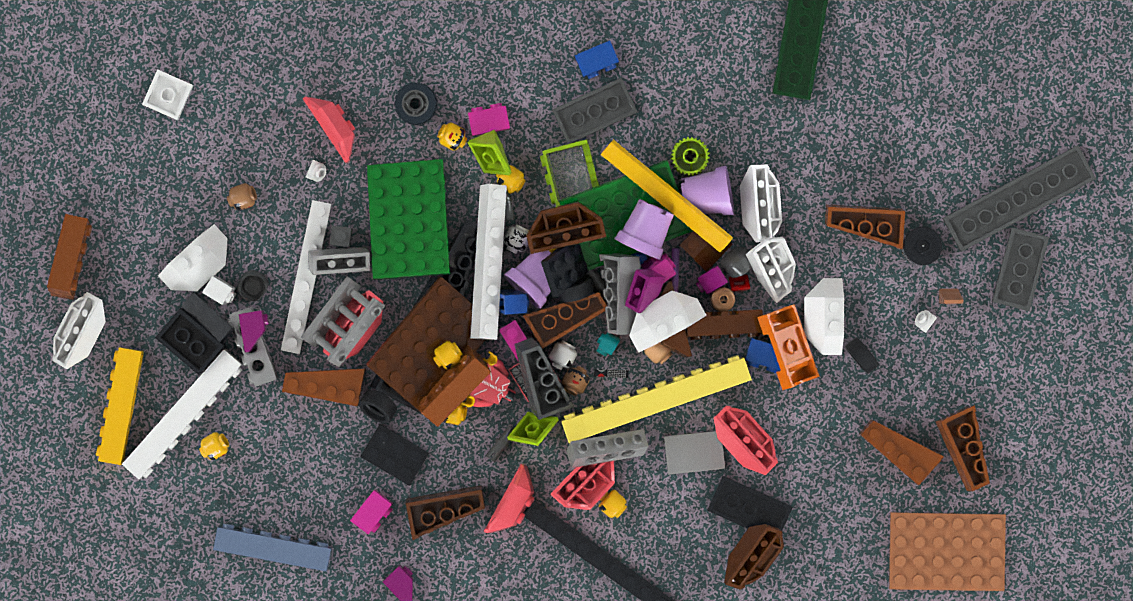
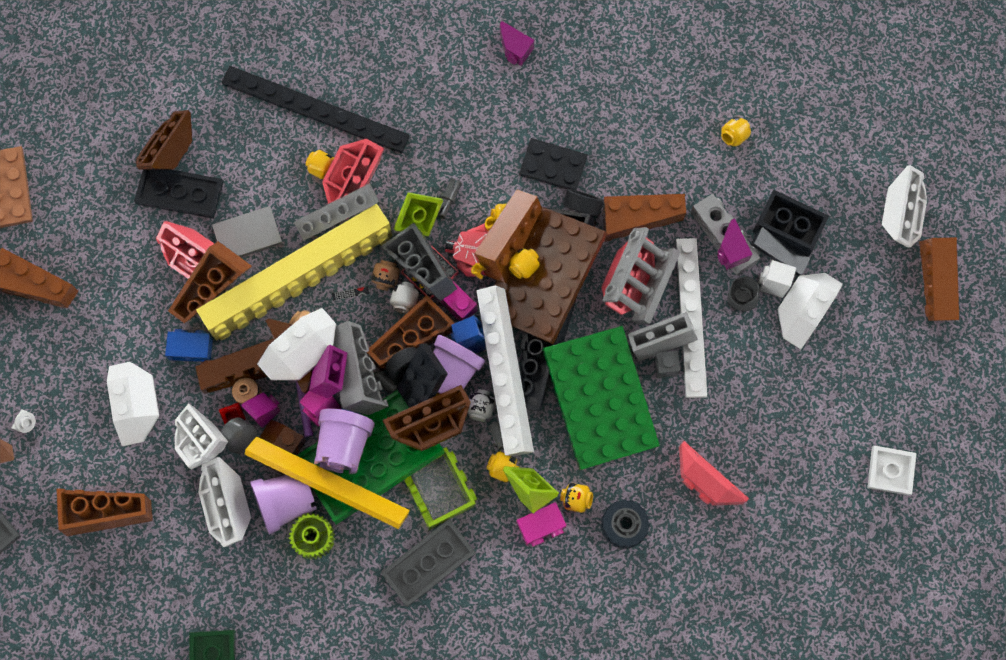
camera: 165 degrees right, 15 degrees down
(120, 406) = (840, 149): yellow brick -> none
(180, 416) = (776, 154): white brick -> none
(242, 196) = (781, 381): medium nougat head -> none
(272, 548) = (650, 50): sand blue brick -> none
(316, 171) = (711, 427): white plate -> none
(371, 512) = (562, 104): dark pink brick -> none
(441, 509) = (492, 121): reddish brown wedge -> none
(513, 503) = (421, 143): coral wedge -> none
(597, 59) = (438, 620): blue brick -> none
(608, 343) = (361, 316): teal plate -> none
(733, 406) = (209, 279): none -> dark orange wedge
(789, 346) = (164, 358): orange piece -> none
(862, 355) = (84, 366): black tyre -> none
(921, 246) = (36, 499): black piece -> none

